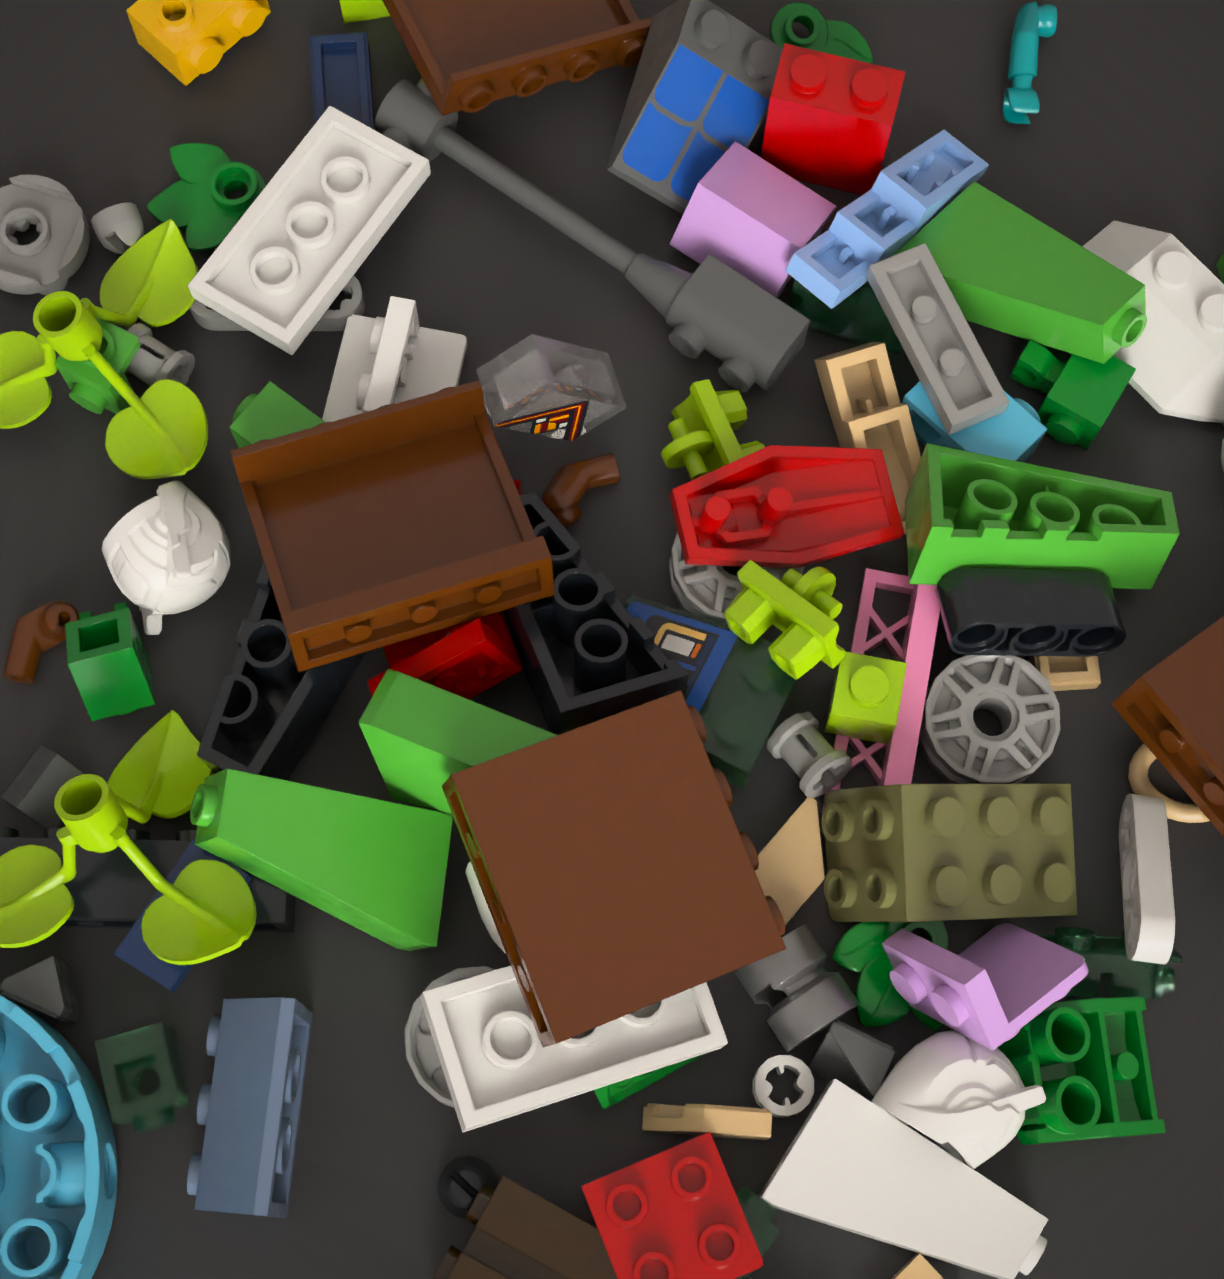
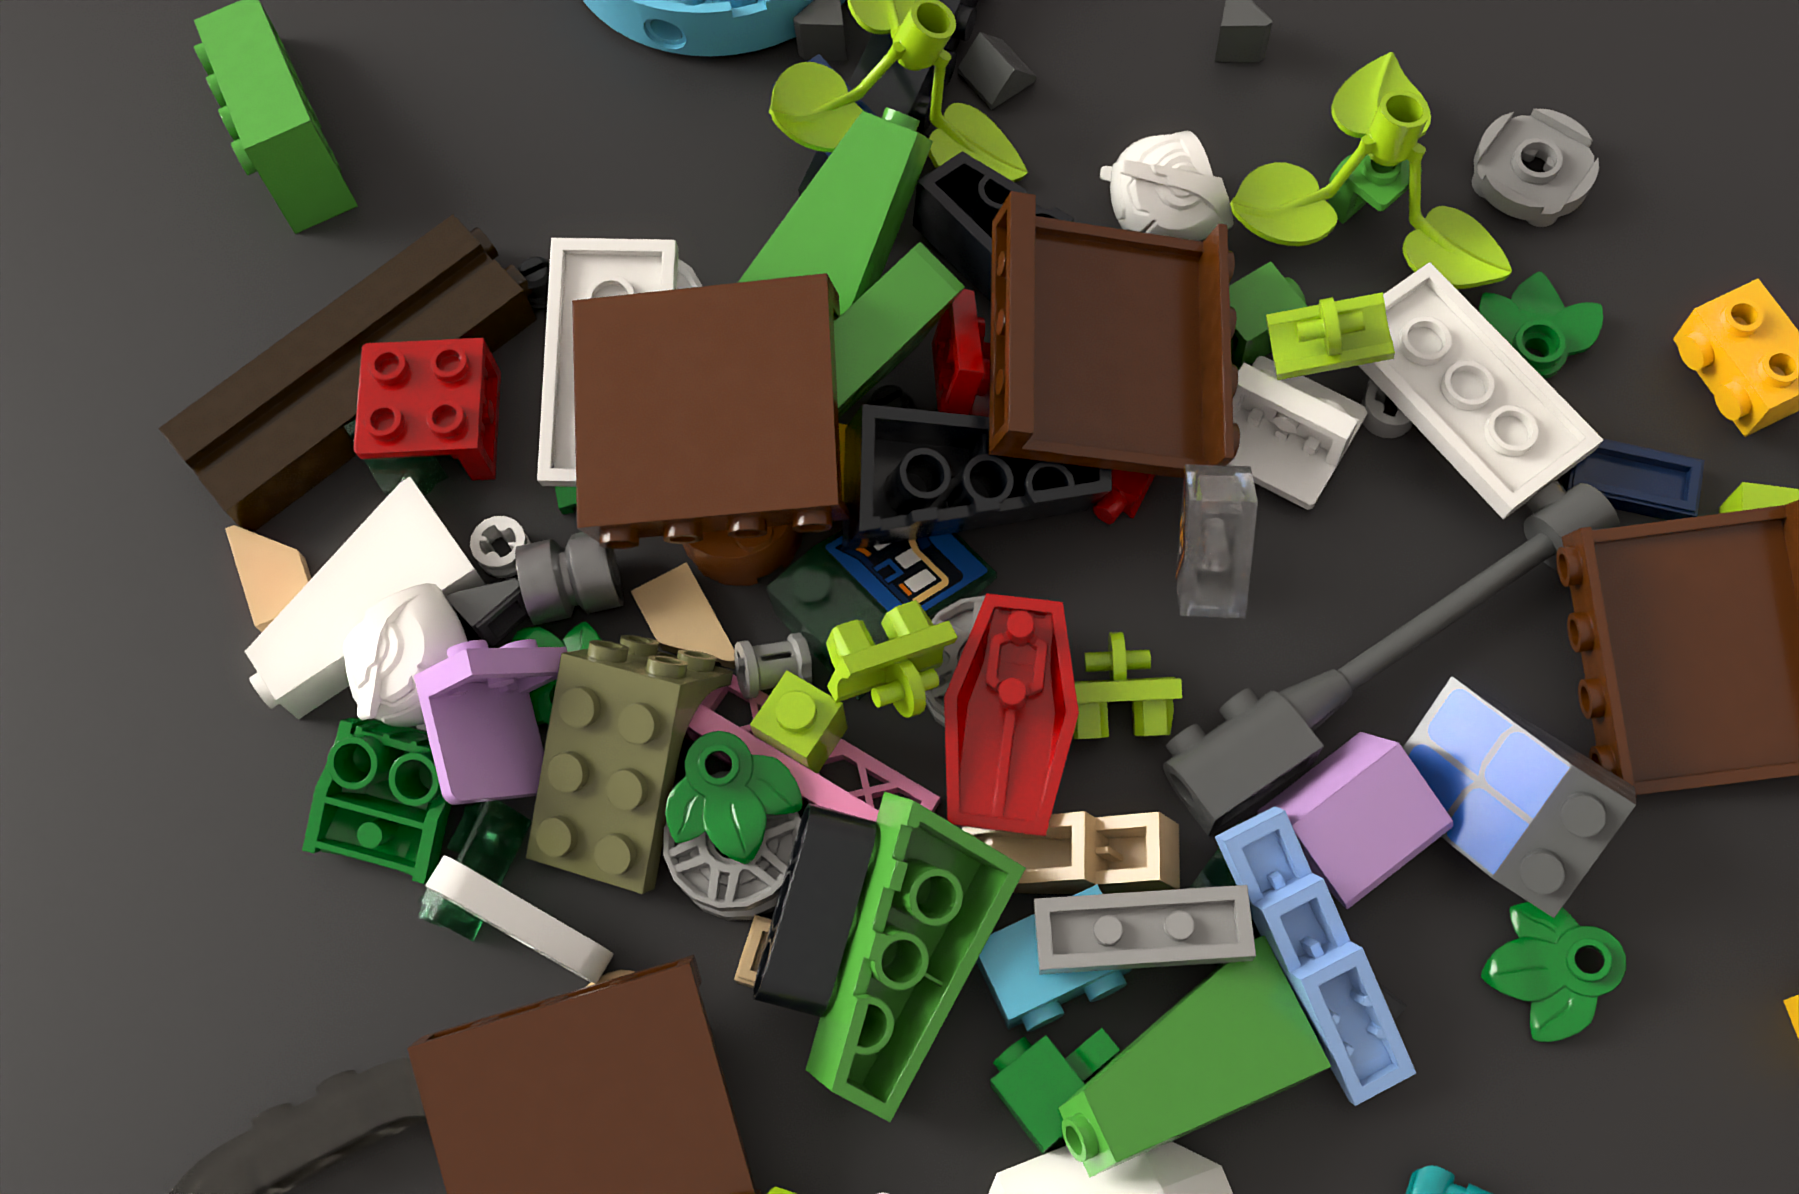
camera: 120 degrees right, 5 degrees down
(33, 636) = (1136, 91): reddish brown arm -> none
(109, 663) = (1082, 124): green brick -> none
(118, 226) = (1521, 240): light grey hinge -> none
(124, 1061) = (727, 75): clear green brick -> none
(158, 361) = (1365, 244): light grey bush -> none
(251, 1107) = (662, 141): sand blue slope -> none
(320, 333) = (1330, 336): none -> lime hips
(573, 481) = (1126, 553): reddish brown arm -> none
(705, 1118) = (495, 476): tan tile -> none
(830, 118) = (1449, 921): red brick -> none
(969, 718) = (731, 806): none -> green plate

